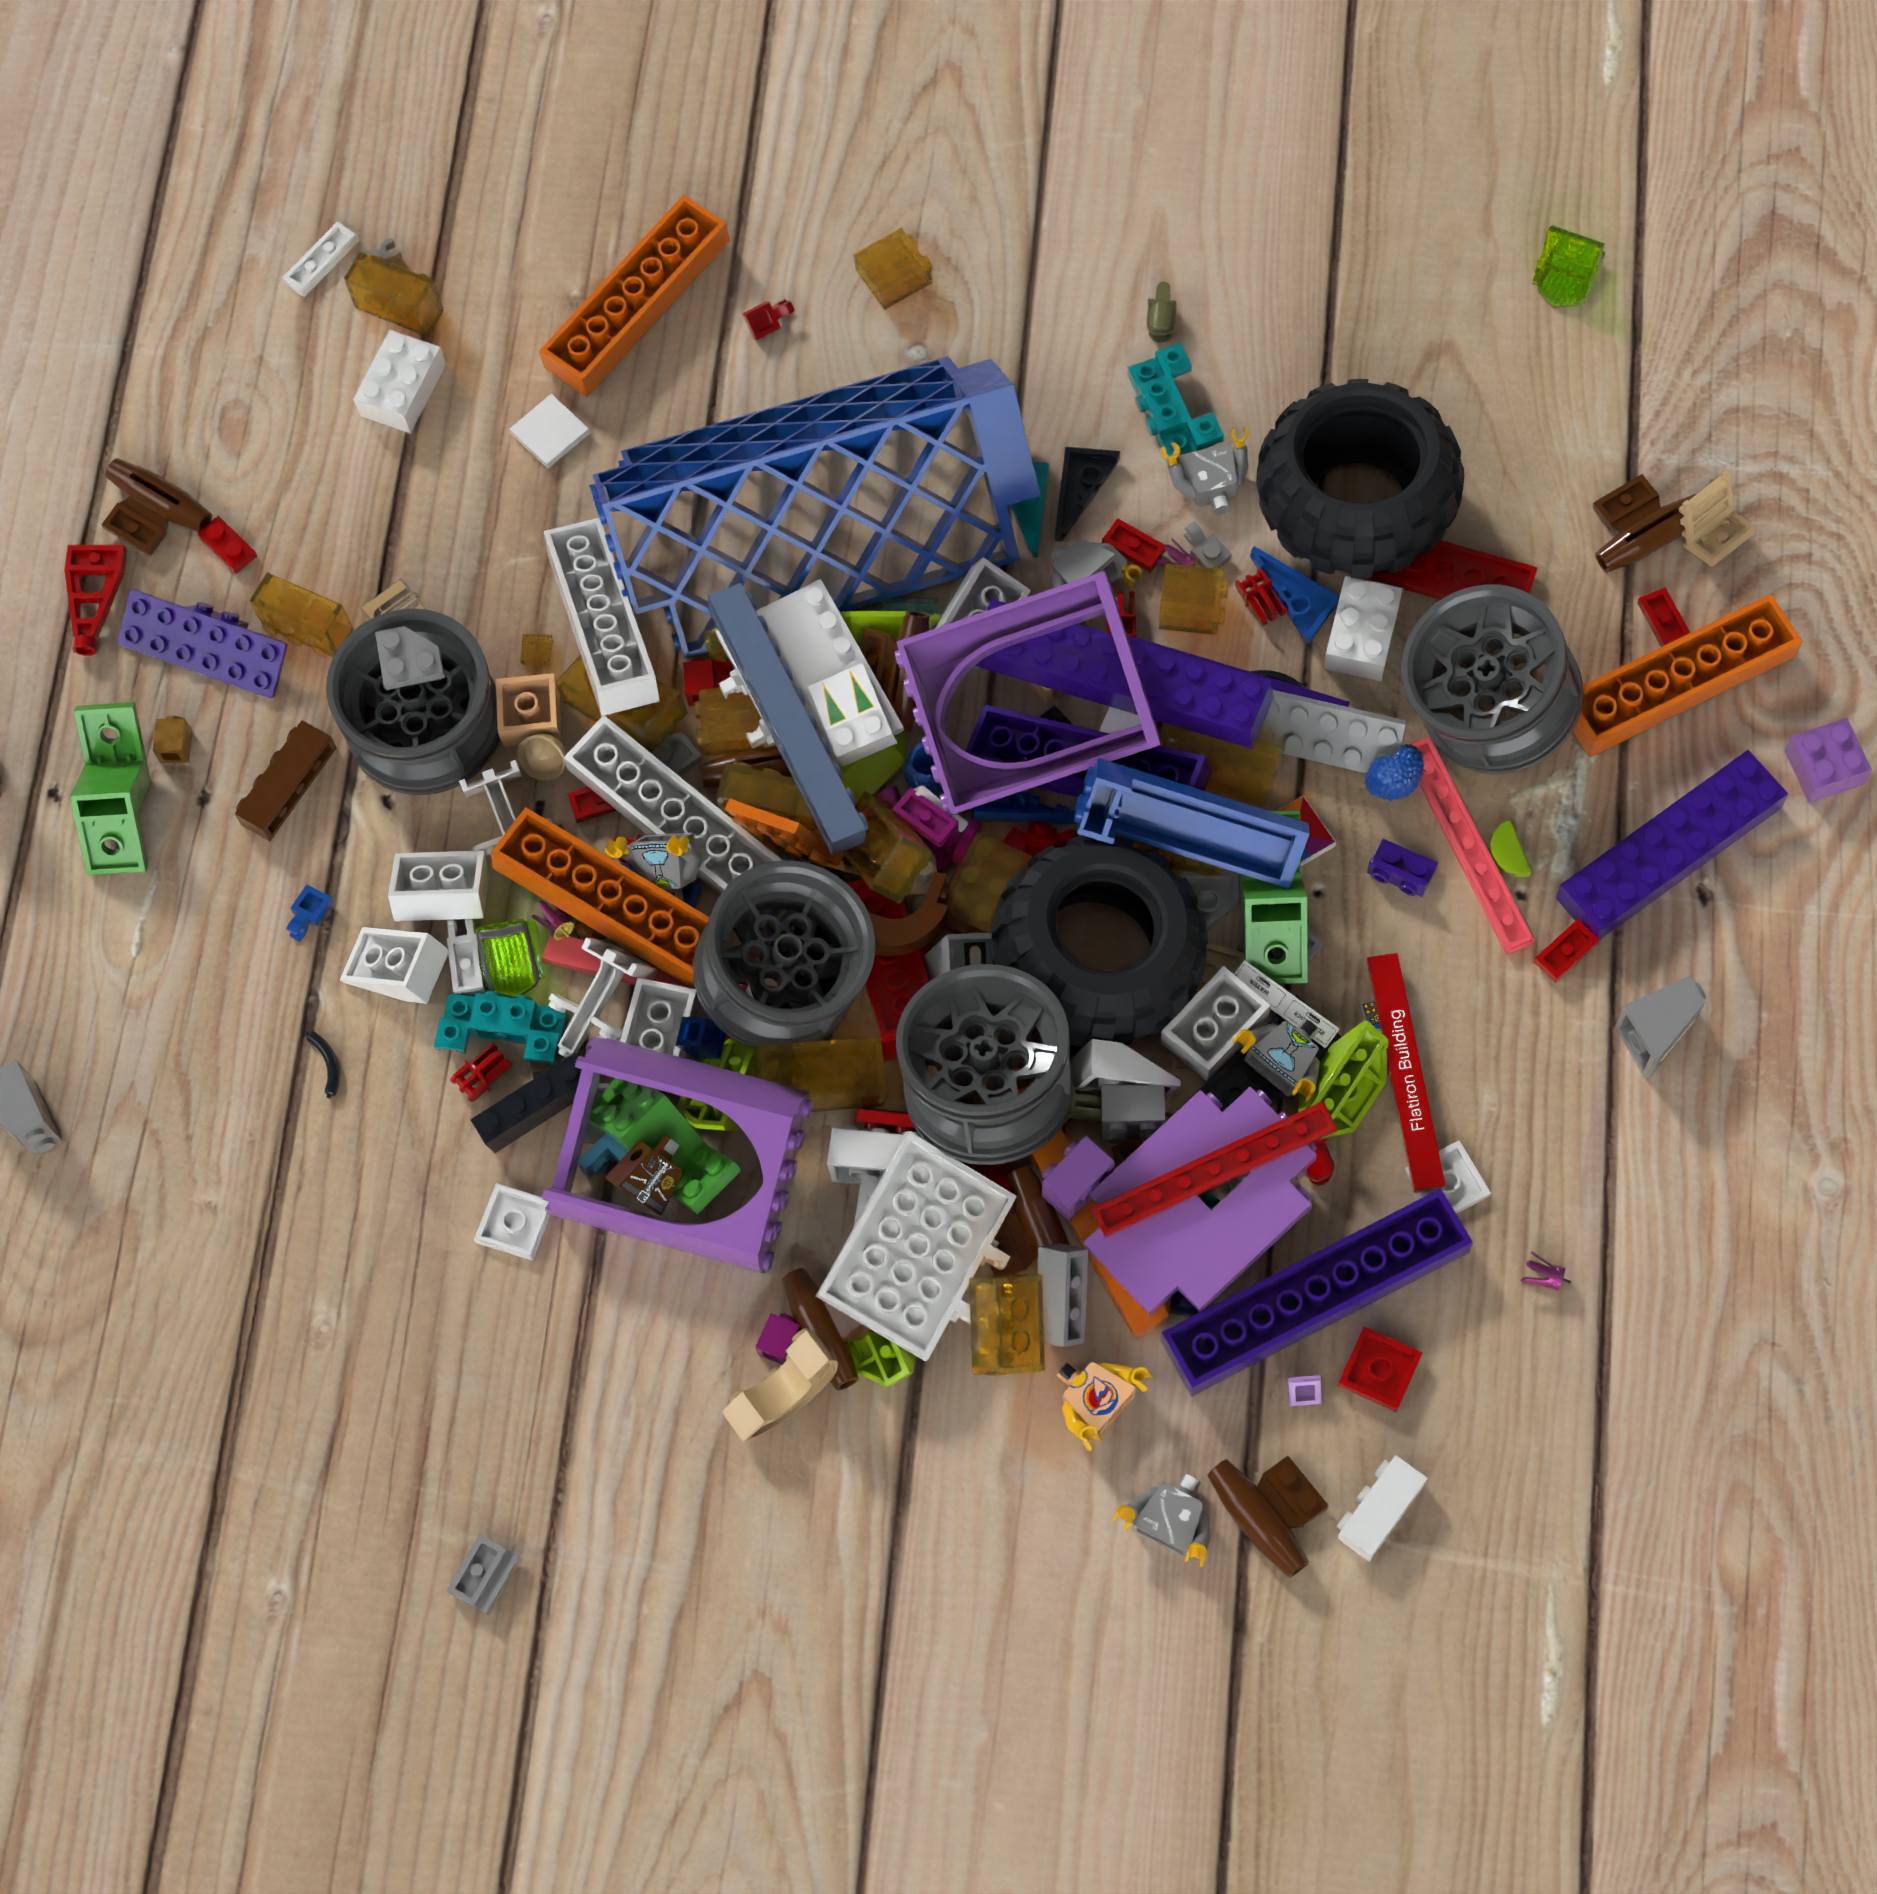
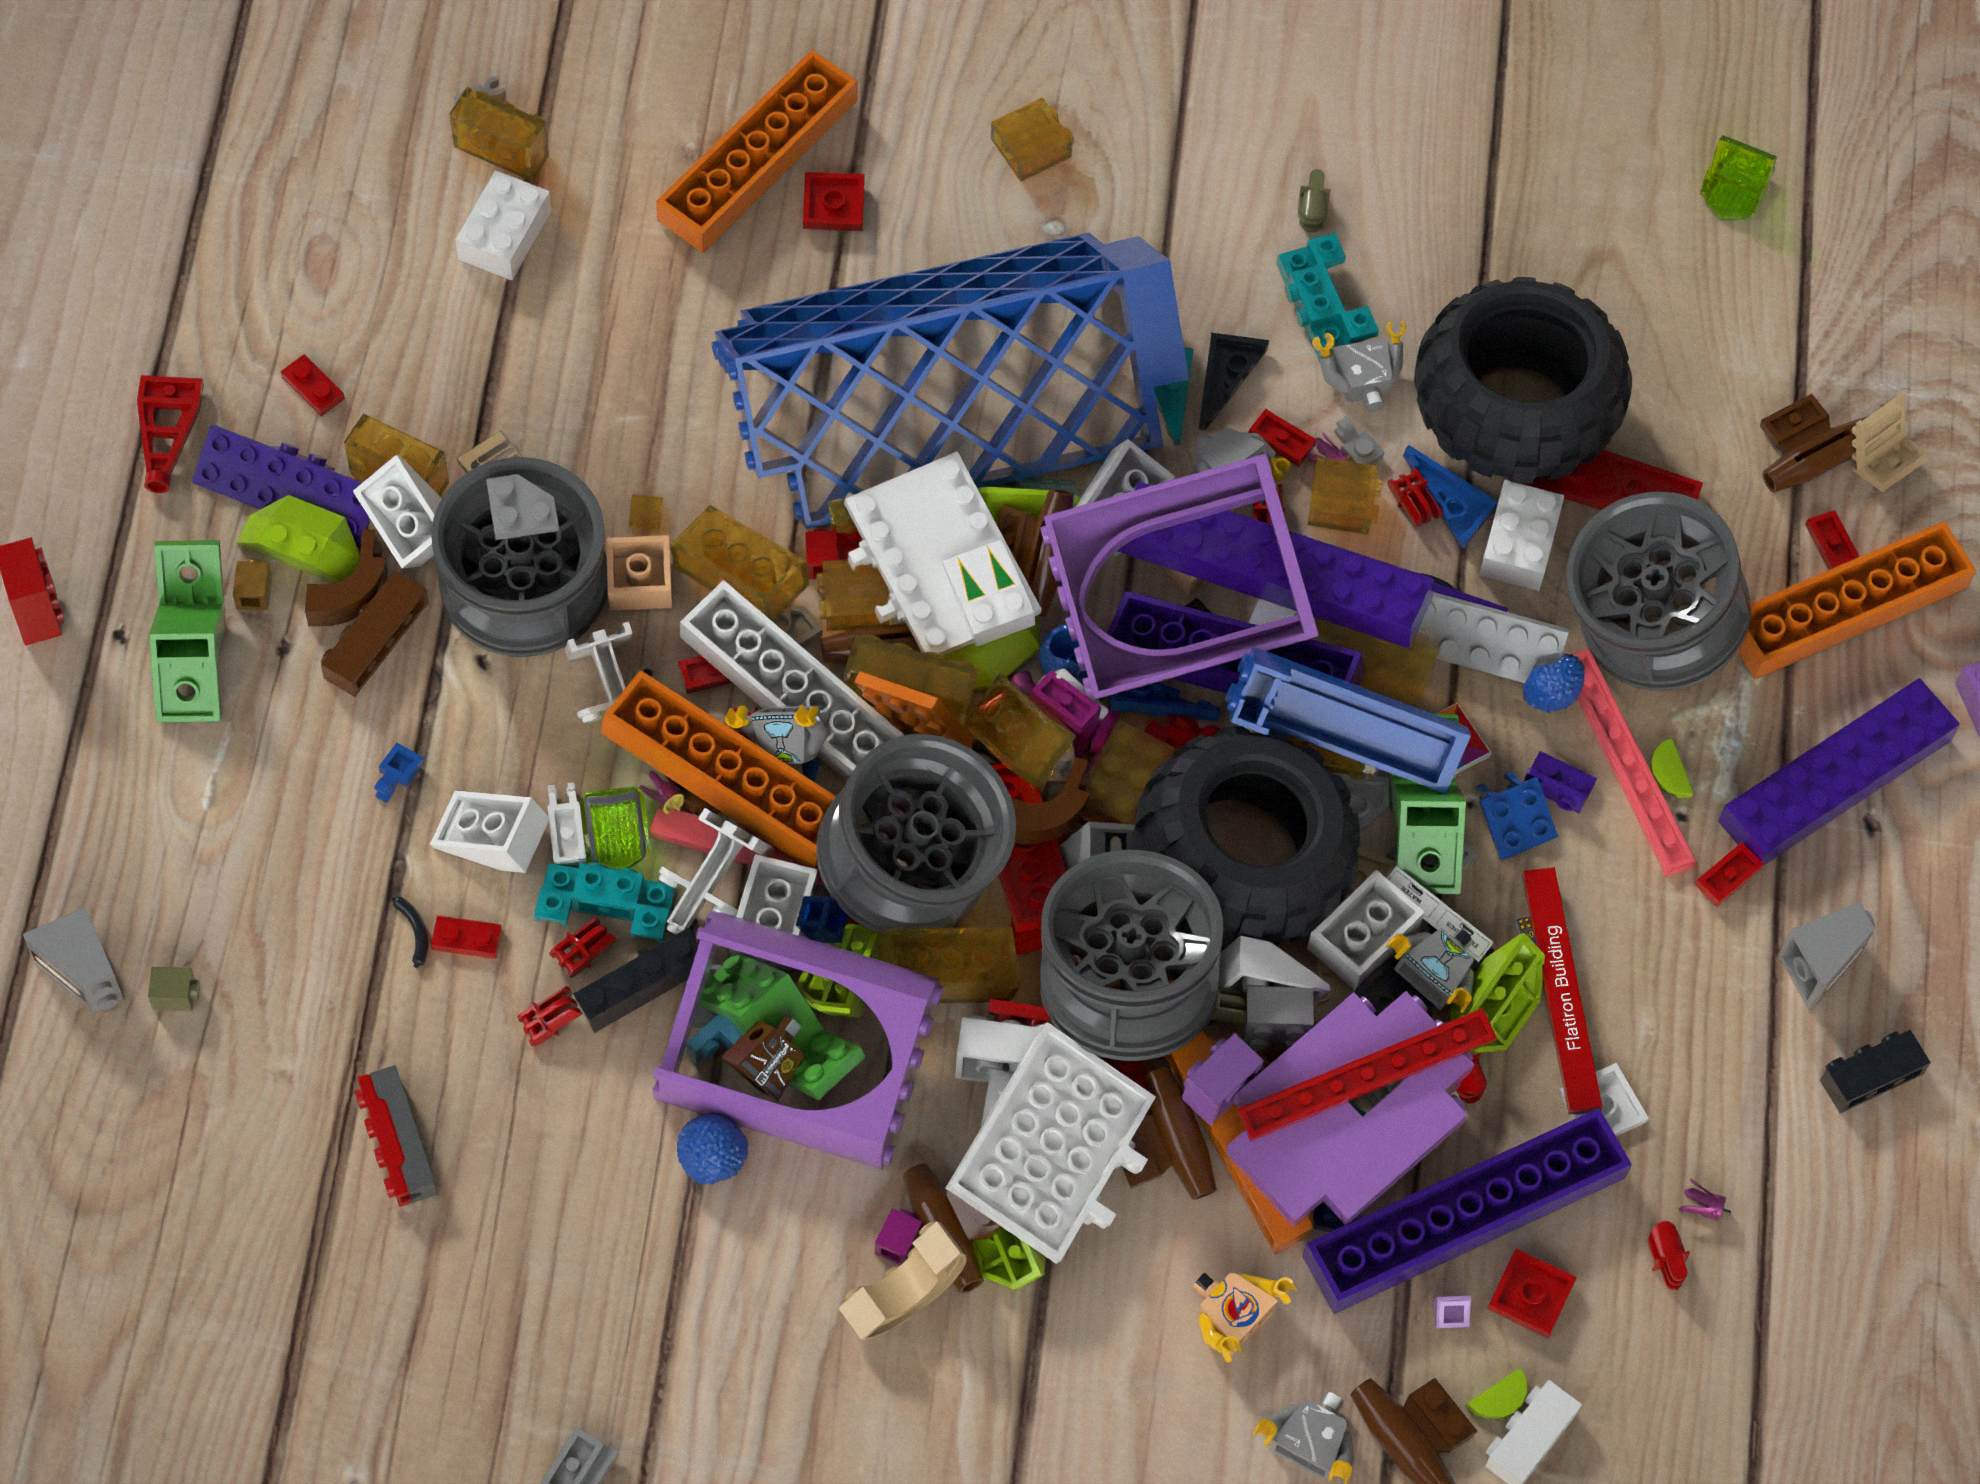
camera: 10 degrees left, 5 degrees down
(104, 1129) = (173, 988): none -> olive brick
(150, 505) = (231, 338): reddish brown plate -> none
(220, 693) = (303, 538): none -> lime wedge
(254, 751) = (342, 600): none -> reddish brown arch
(302, 660) = (401, 510): none -> white slope
(311, 1262) = (396, 1135): none -> piece
(320, 259) = (417, 93): white tile -> none
(374, 1067) = (466, 937): none -> red plate
(439, 885) = (541, 750): white brick -> none
(452, 1140) = (551, 1015): none -> red arm
(513, 1222) = (614, 1104): white tile -> none
(541, 756) = (653, 622): tan hat -> none
(549, 431) = (662, 286): white tile -> none
(601, 617) = (721, 479): white brick -> none
(602, 1262) = (711, 1148): none -> blue hair
(708, 339) = (833, 201): none -> red plate
(764, 318) = (895, 182): red plate -> none
(787, 719) = (922, 592): sand blue brick -> none
(1006, 1324) = (1144, 1228): clear yellow brick -> none
(1063, 1293) = (1201, 1201): light grey brick -> none
(1352, 1473) = (1502, 1398): none -> lime tile
(1361, 904) = (1517, 816): none -> blue plate
(1510, 1325) = (1668, 1254): none -> red arm
(1708, 1137) = (1874, 1070): none -> black brick

